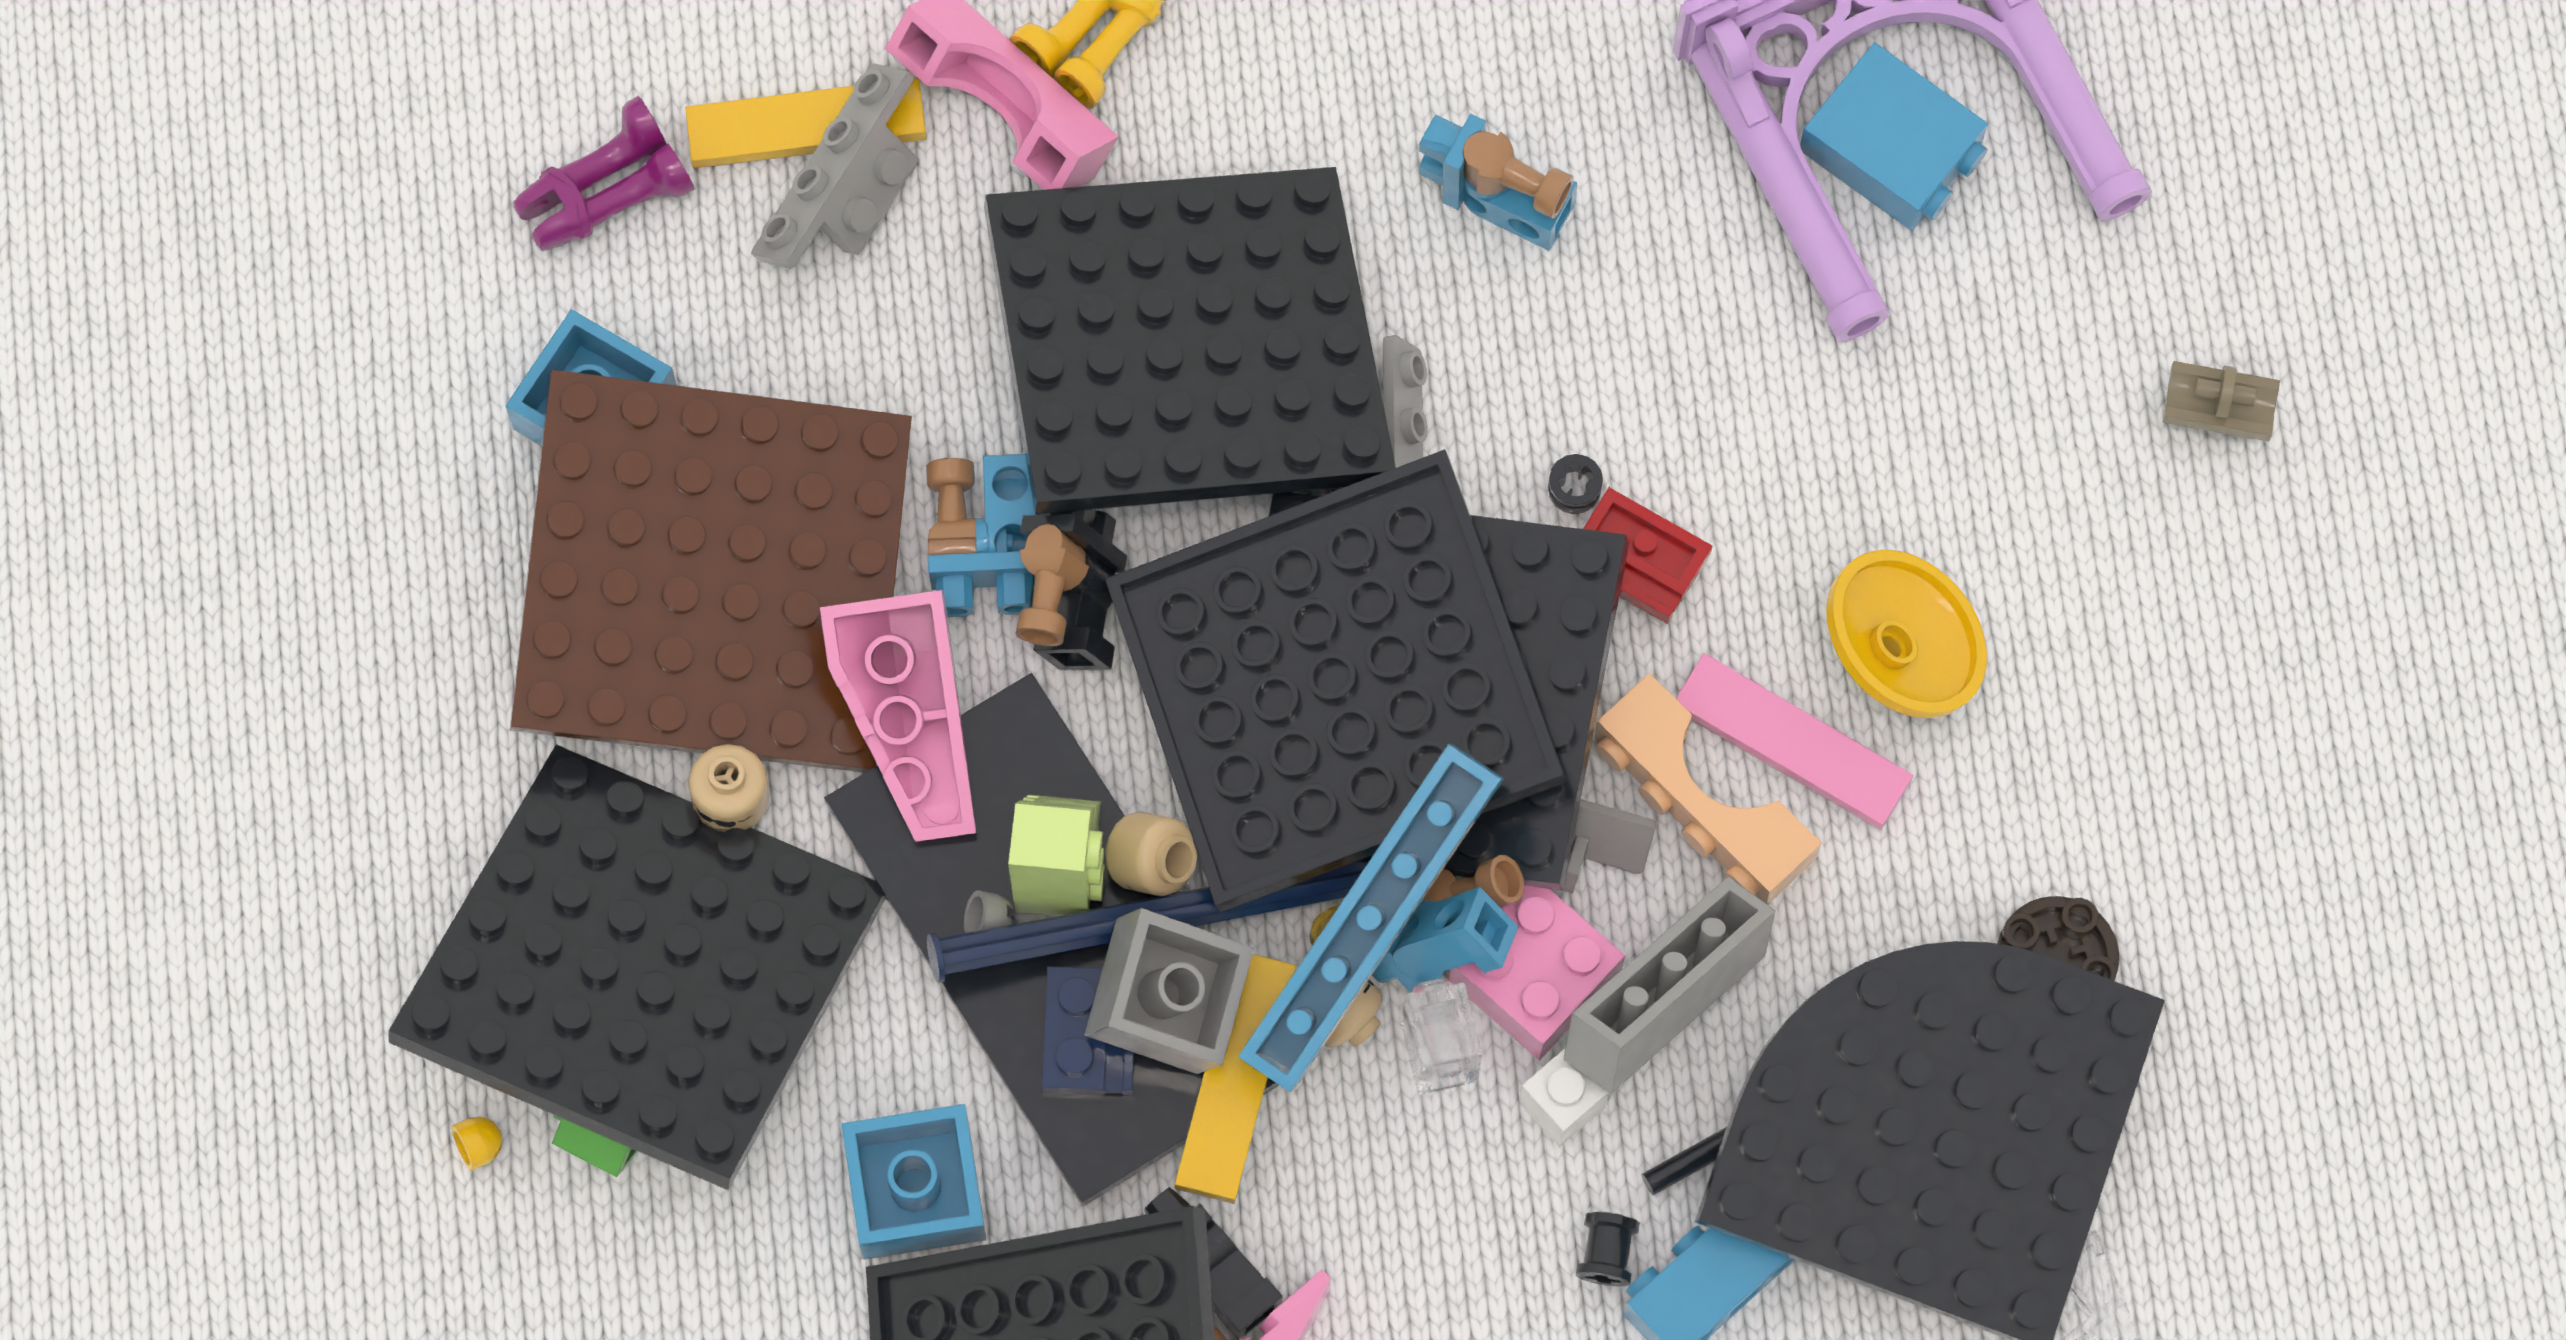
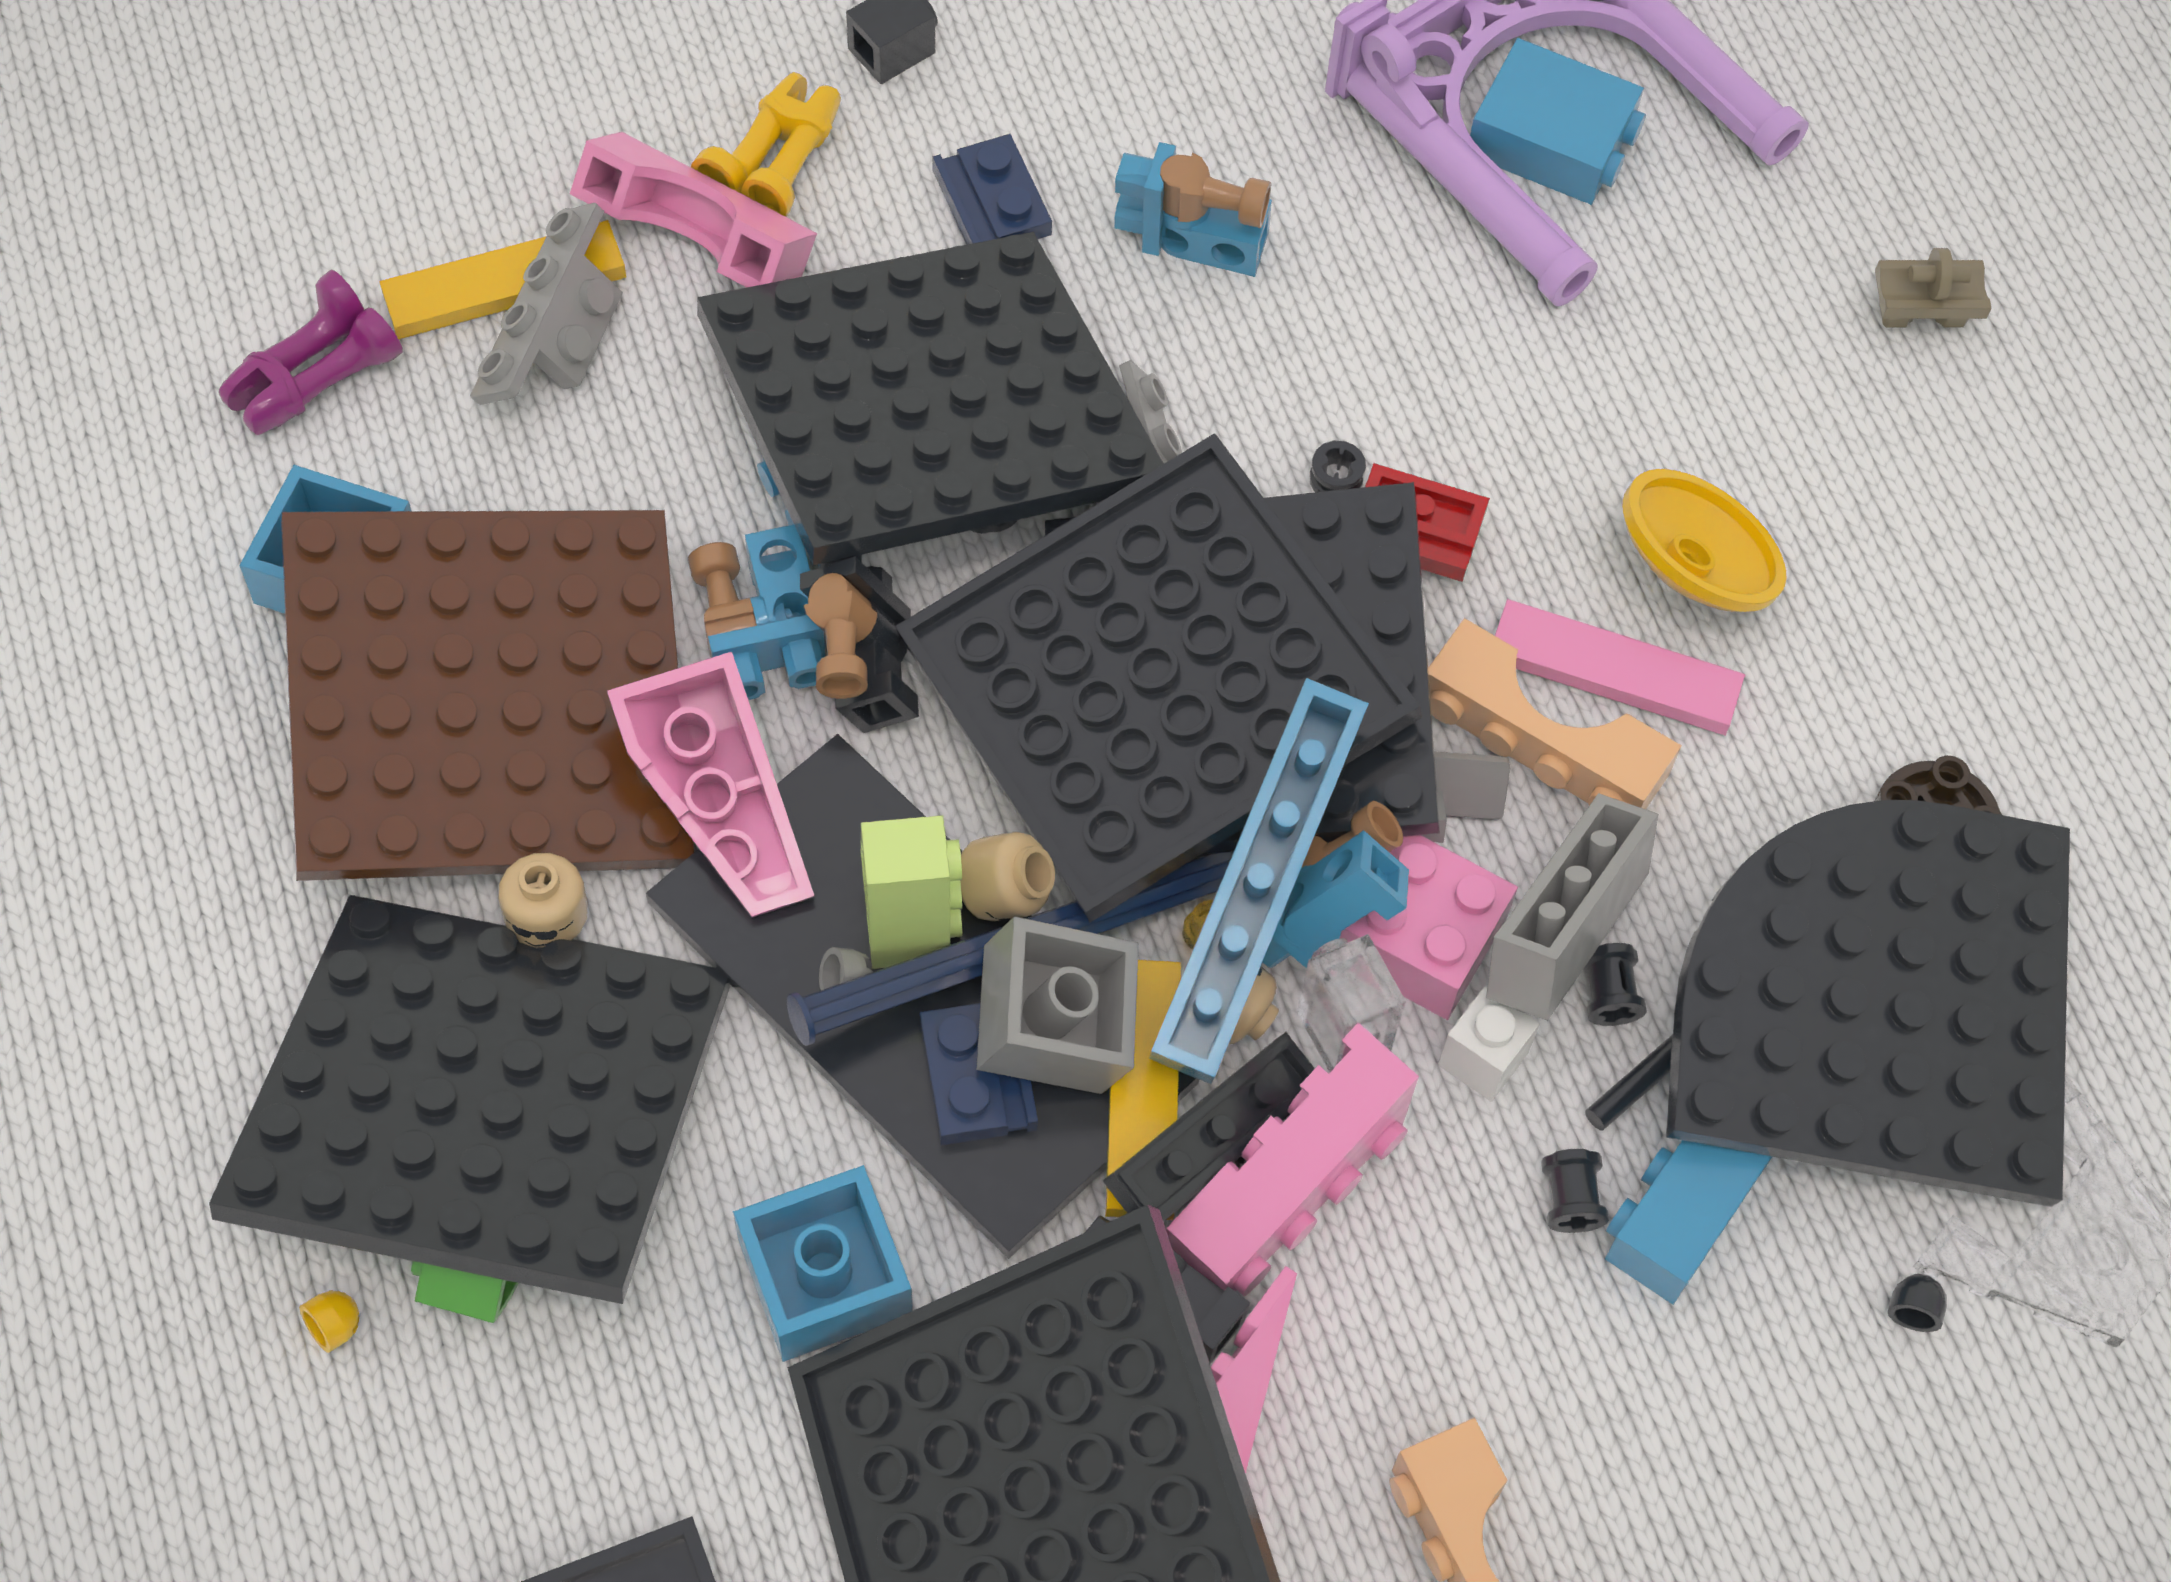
camera: 15 degrees left, 10 degrees down
(1290, 1131) = (1212, 1131): none -> black tile
(1305, 113) = (991, 191): none -> dark blue plate
(1353, 1180) = (1297, 1165): none -> bright pink wedge
(1697, 1061) = (1614, 986): none -> black bush

